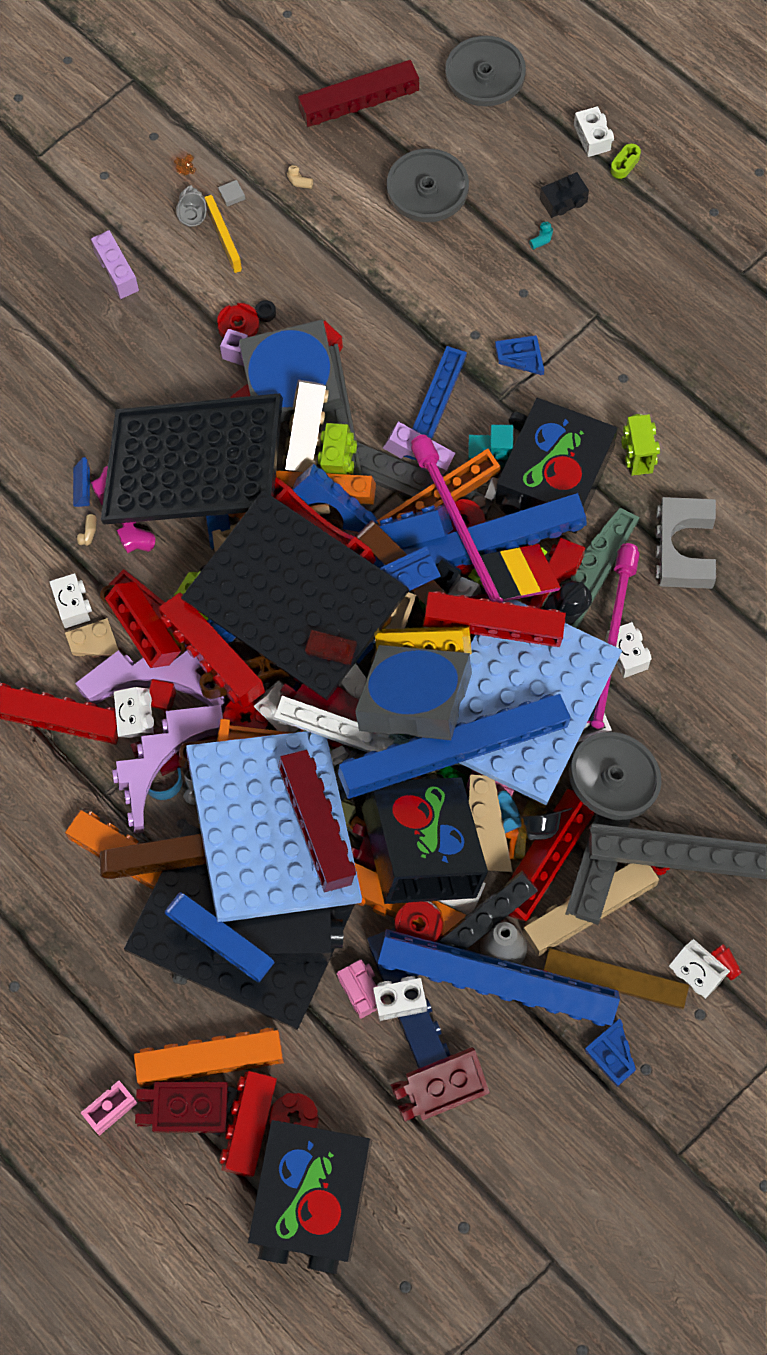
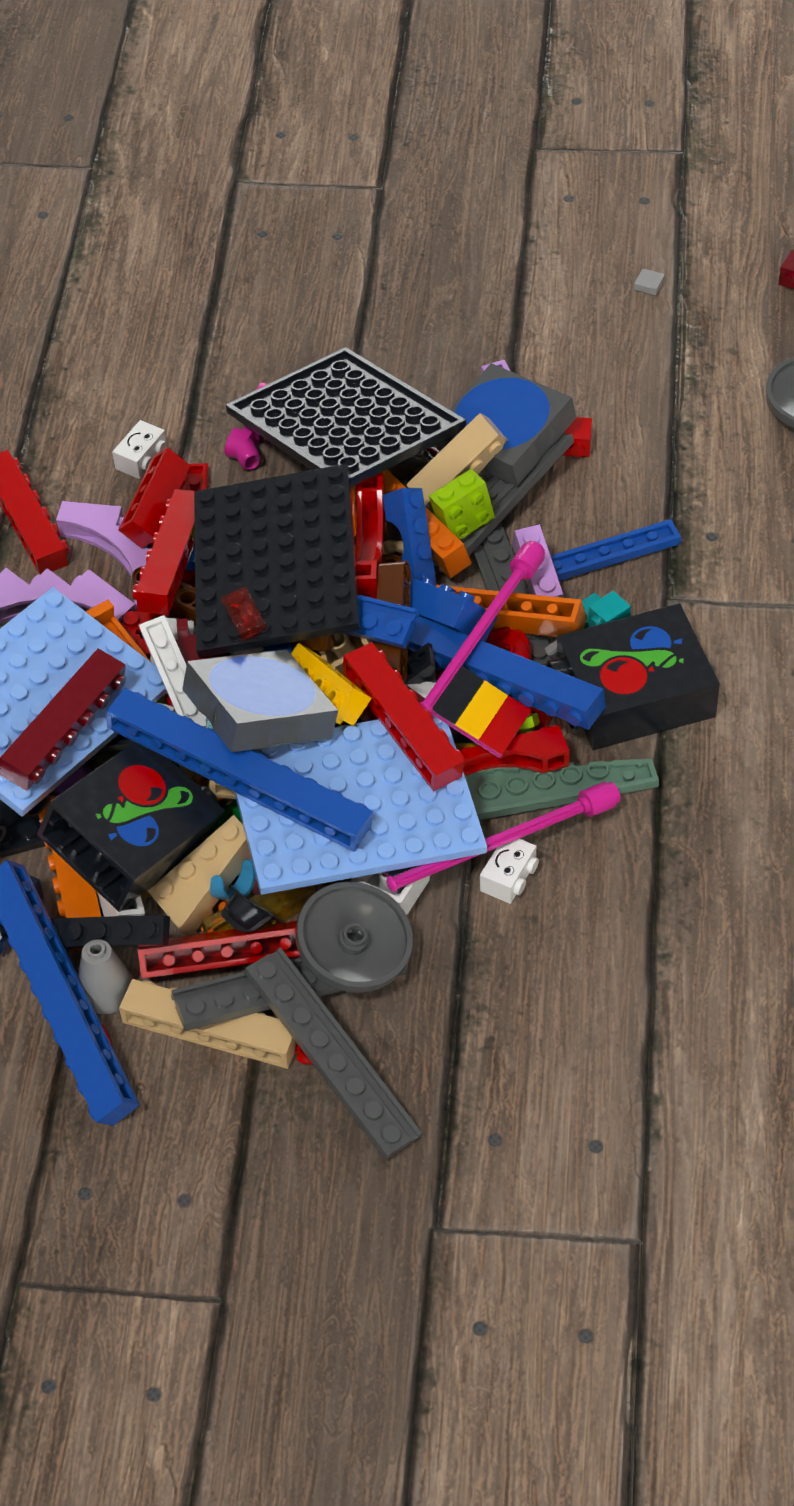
camera: 50 degrees right, 15 degrees down
(81, 483) = (267, 376): blue slope -> none
(90, 528) = (214, 419): tan arm -> none
(92, 640) = (117, 488): tan wing -> none
(115, 263) = (489, 249): lavender arch -> none
(133, 712) = (71, 553): white brick -> none
(162, 695) = (111, 567): red panel -> none
(185, 165) = (637, 234): clear orange plant -> none
(191, 207) = (600, 263): light grey hair -> none
(223, 233) = (600, 301): yellow tile -> none
(239, 312) = (538, 367): red plate -> none
(265, 311) = (562, 381): black tile -> none
(297, 180) = (716, 311): tan arm -> none
(431, 917) = (71, 892): red plate -> none
(520, 354) = (728, 577): blue wing -> none
(571, 599) = (506, 786): black piece -> none
(612, 1054) = (72, 1149): blue wing -> none
(618, 978) = (156, 1101): pearl gold tile -> none
(640, 444) = (731, 723): lime brick -> none
(675, 568) = (688, 807): light grey arch -> none
(699, 968) = (224, 1156): white brick -> none
(726, 957) = (256, 1178): red cone -> none

